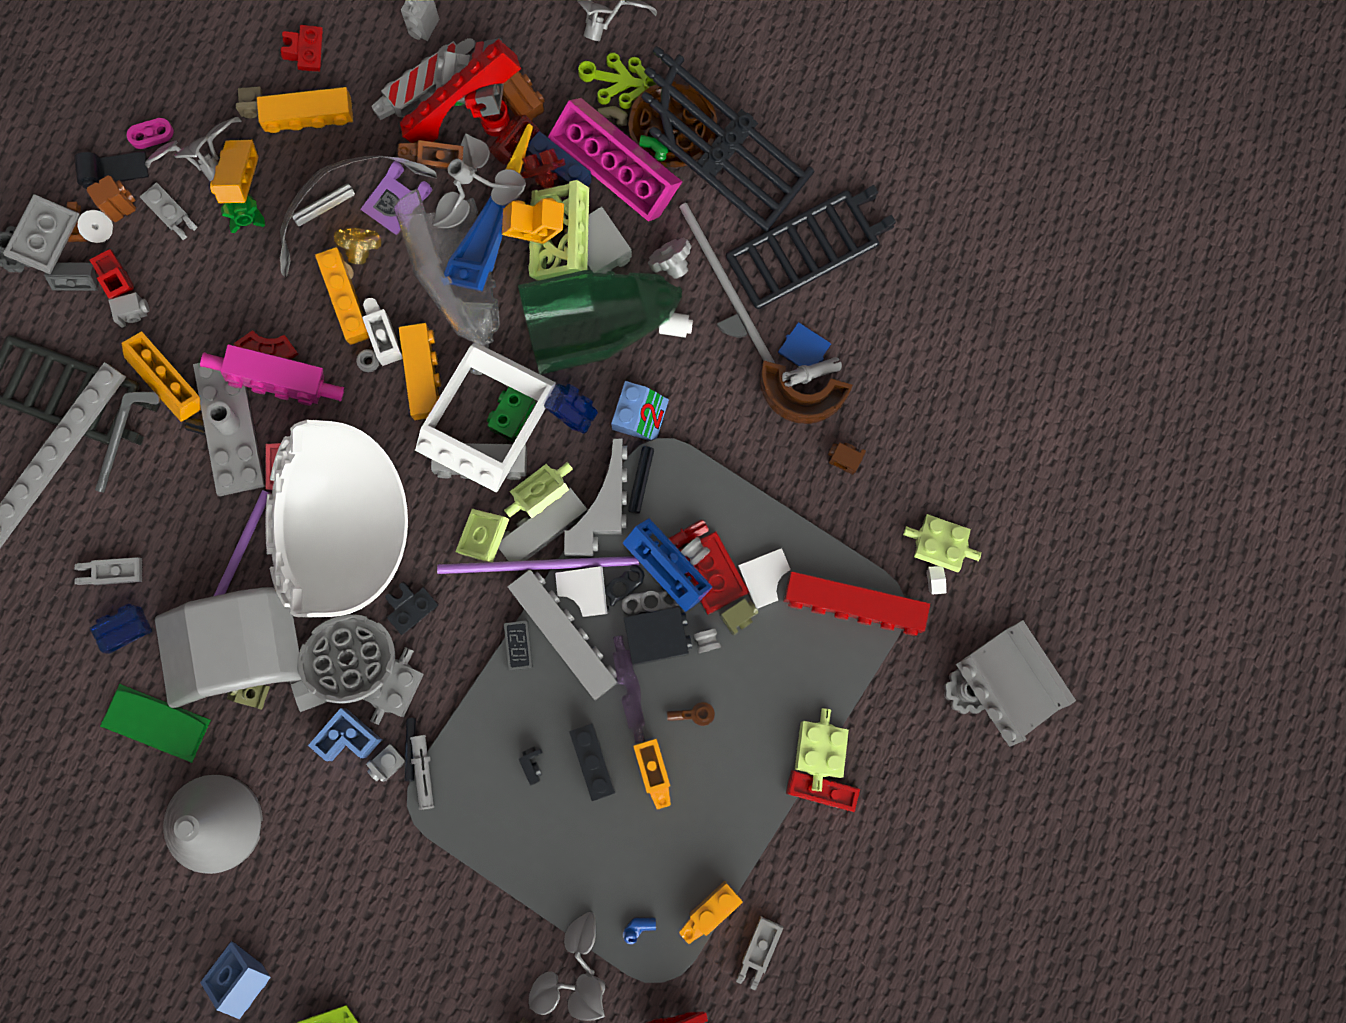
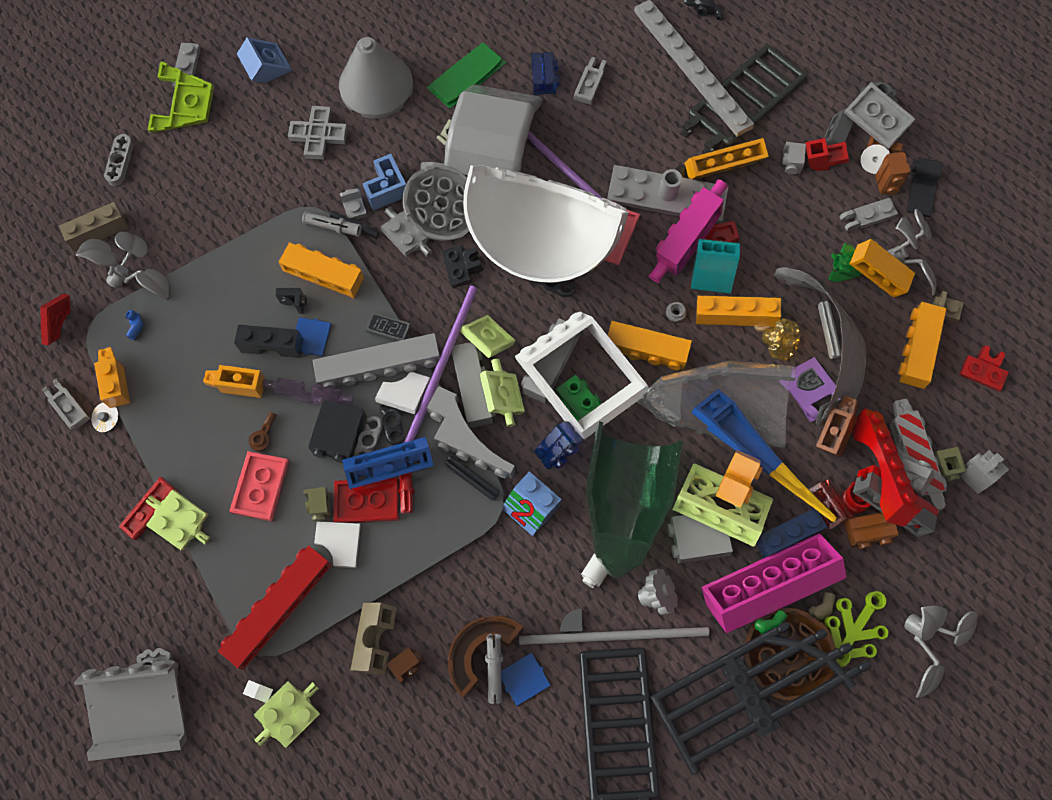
camera: 125 degrees right, 10 degrees down
(127, 400) = (714, 128): dark grey piece -> none
(150, 131) = (945, 225): dark pink plate -> none
(303, 334) = (715, 266): none -> teal brick
(307, 857) = (317, 132): none -> light grey plate
(381, 333) = (694, 326): white brick -> none
(422, 47) = (954, 460): none -> olive brick
(484, 752) = (321, 269): none -> light orange brick
(507, 186) = (782, 474): light grey plant -> none
(550, 163) = (788, 511): clear red hips -> none
(561, 720) = (314, 334): none -> blue piece
(695, 551) = (386, 490): light grey wheel -> none
(707, 640) = (312, 469): light grey wheel -> none
(747, 688) = (259, 486): none -> coral tile
(754, 900) = (104, 418): none -> piece
(856, 494) = (367, 654): none -> dark tan arch

